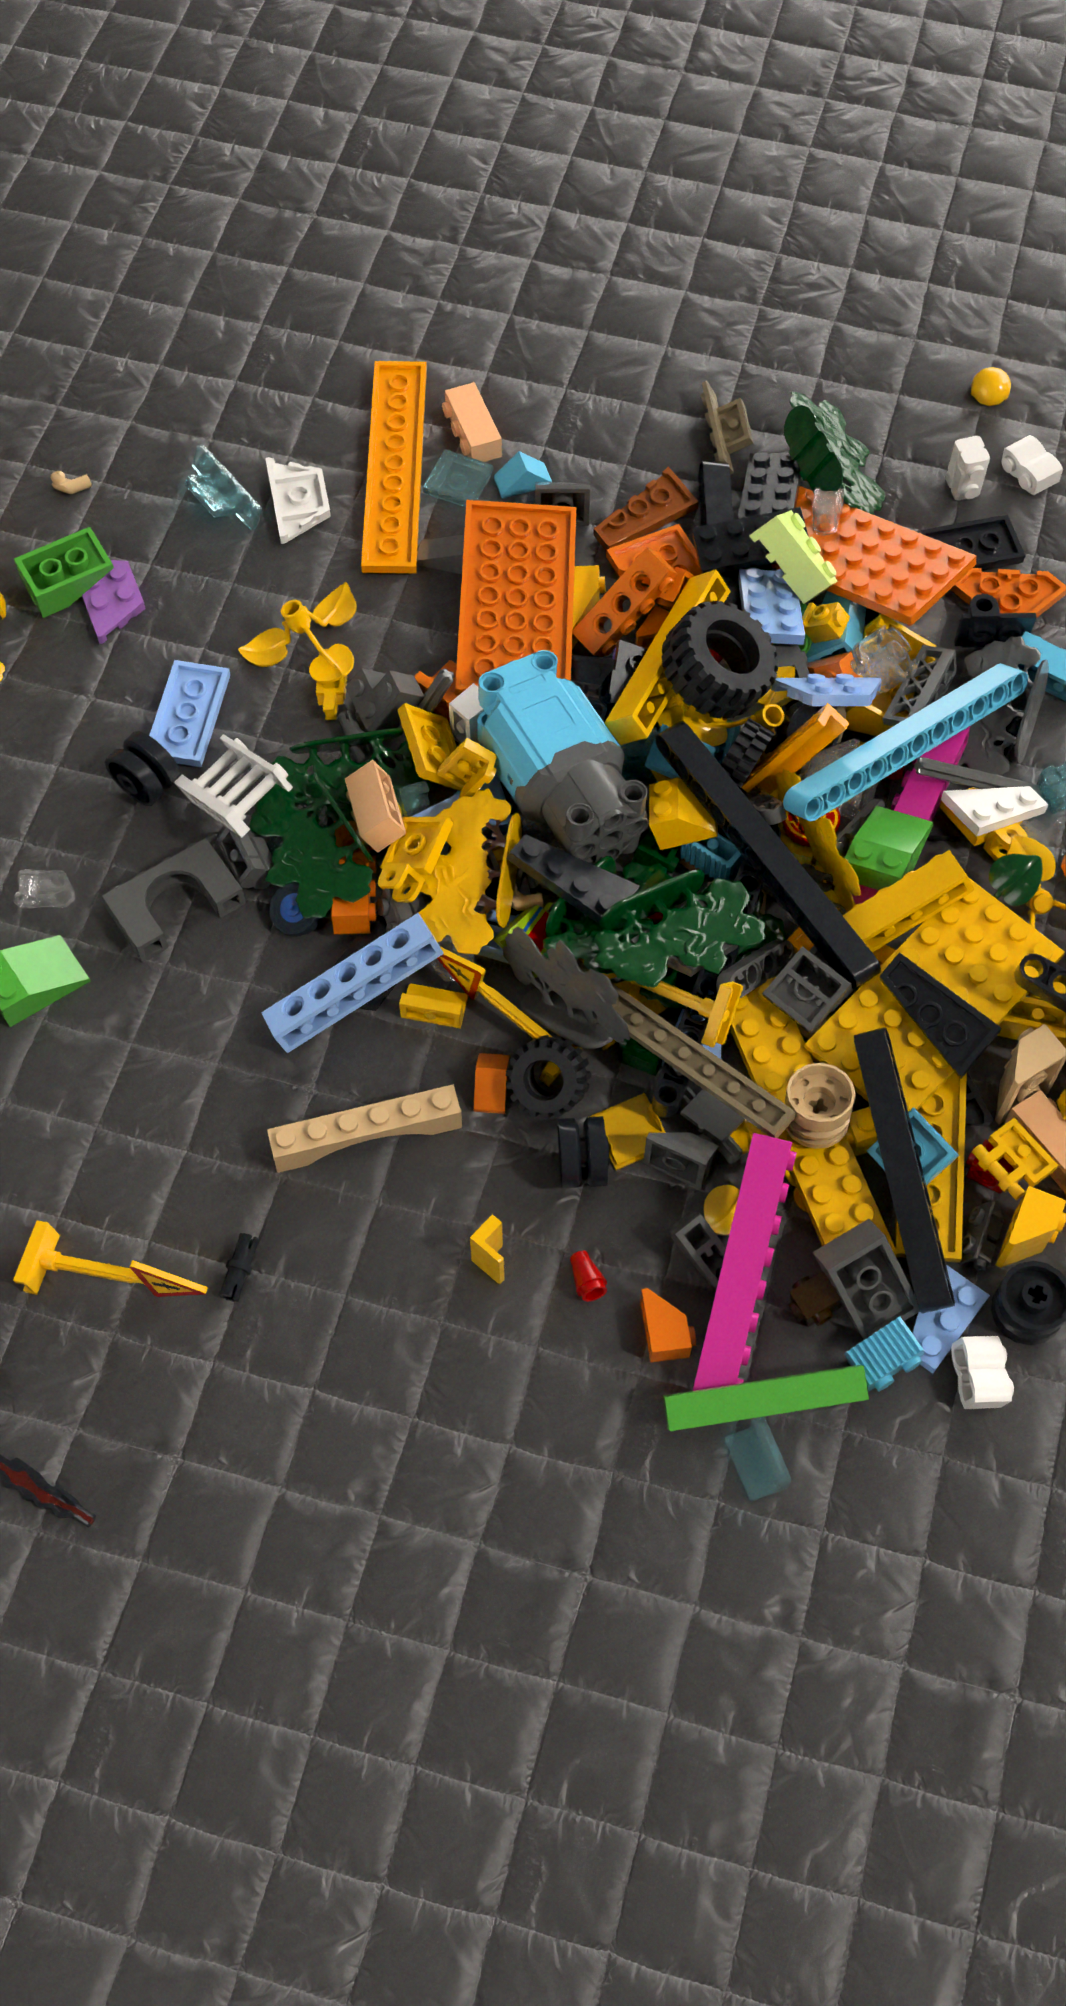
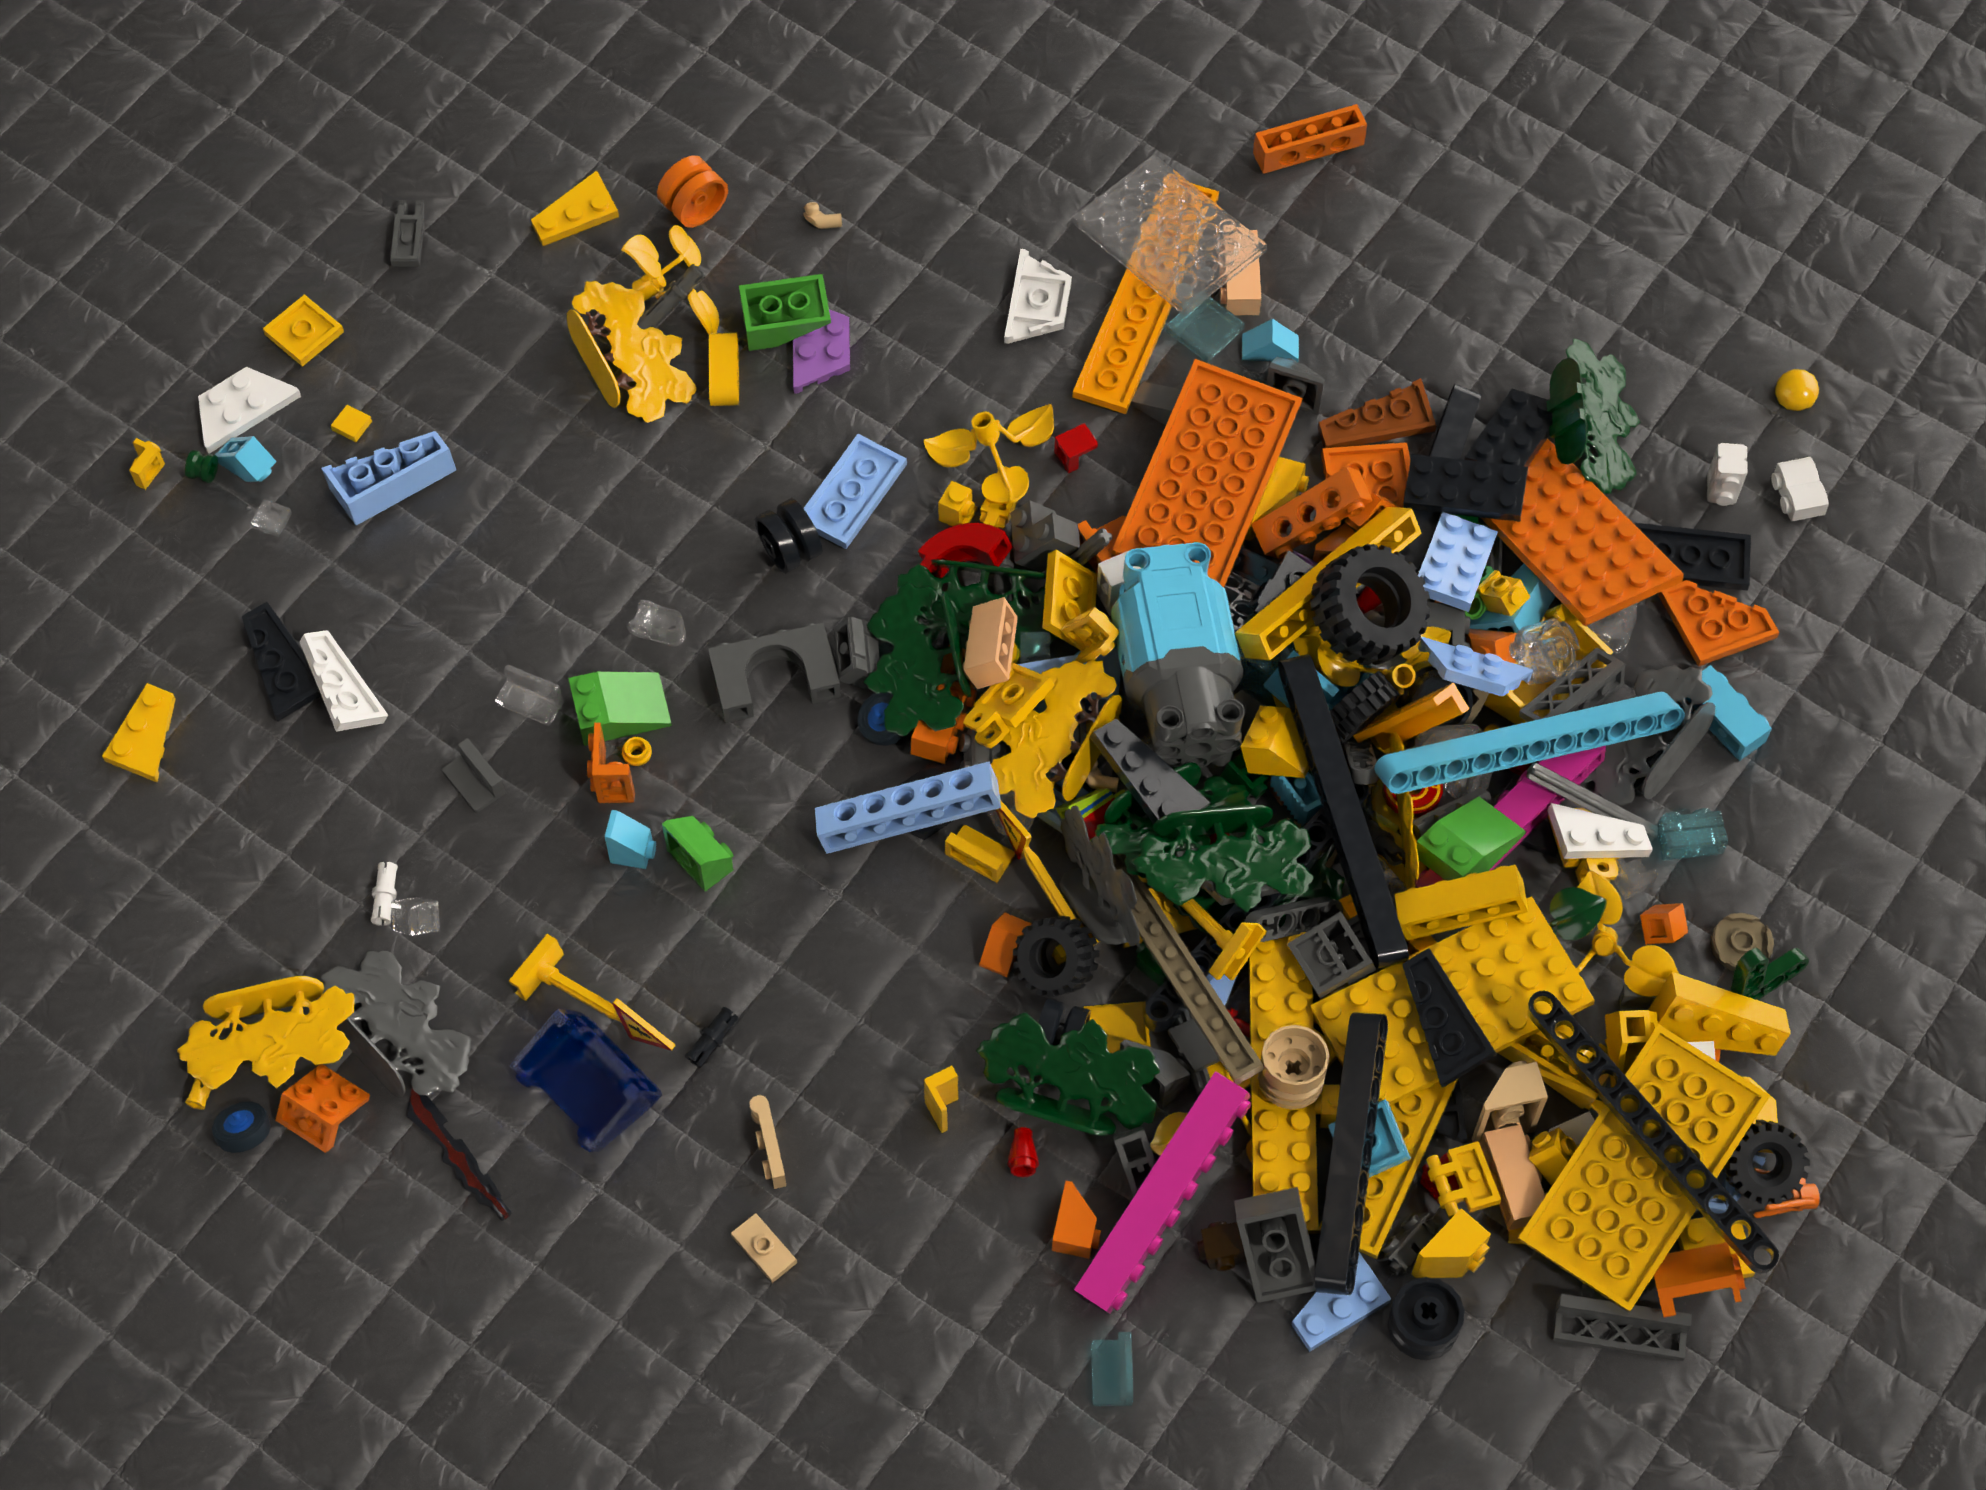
camera: 20 degrees right, 0 degrees up
(25, 640) = (723, 369): none -> yellow beam
(47, 1051) = (612, 780): none -> orange bracket
(62, 1008) = (632, 745): none -> yellow plate
(88, 1103) = (628, 841): none -> medium azure slope
(126, 1351) = (586, 1077): none -> clear blue windscreen
(159, 1090) = (697, 850): none -> bright green slope
(220, 490) = (963, 270): clear light blue bracket -> none
(220, 807) = (847, 597): white fence -> none
(292, 697) = (956, 505): none -> yellow brick
(311, 1139) = (821, 942): tan arch -> none
(316, 722) = (964, 544): none -> red arch
(333, 1351) = (767, 1140): none -> tan plate
(367, 1460) = (764, 1248): none -> tan plate
(379, 611) = (1074, 444): none -> red panel
(397, 407) = (1169, 234): none -> clear plate
(489, 296) = (1309, 138): none -> orange brick
(613, 1176) = (1078, 1068): none -> dark green plant
(728, 424) = (1500, 352): dark tan bracket -> none
(765, 1397) = (1139, 1316): bright green tile -> none
(796, 555) = (1497, 518): yellowish green wedge -> none
(827, 510) = (1556, 477): clear piece -> none
(886, 1354) = (1267, 1317): medium azure brick -> none
(982, 1372) = (1352, 1364): white brick -> none
(986, 623) = (1669, 646): black piece -> none

